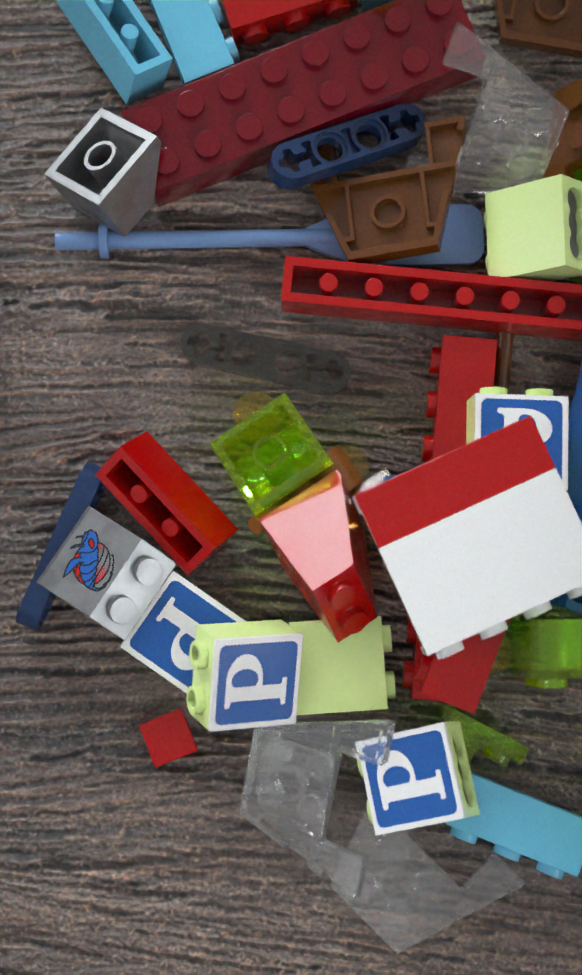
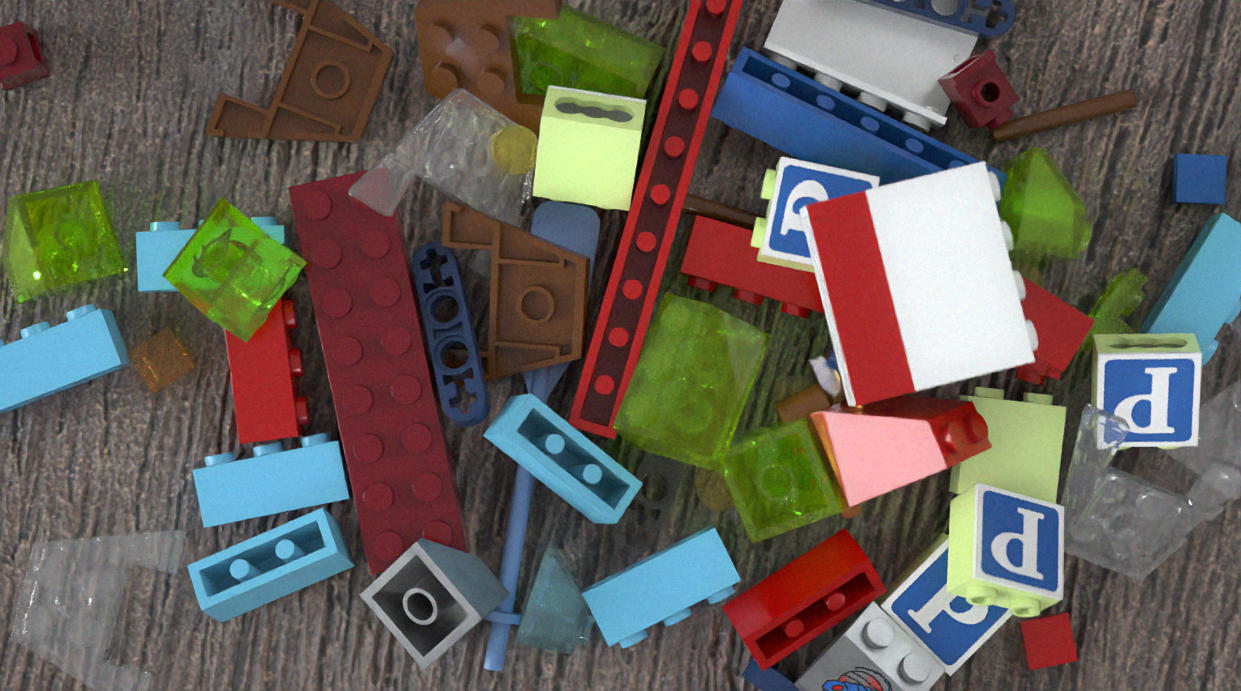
camera: 85 degrees left, 5 degrees up
(124, 278) = (556, 608): none -> clear light blue slope
(155, 375) = (662, 587): none -> medium azure brick
(254, 261) = (563, 459): none -> medium azure brick
(345, 360) = (691, 382): none -> clear neon green slope
(521, 168) = (515, 150): none -> clear yellow piece

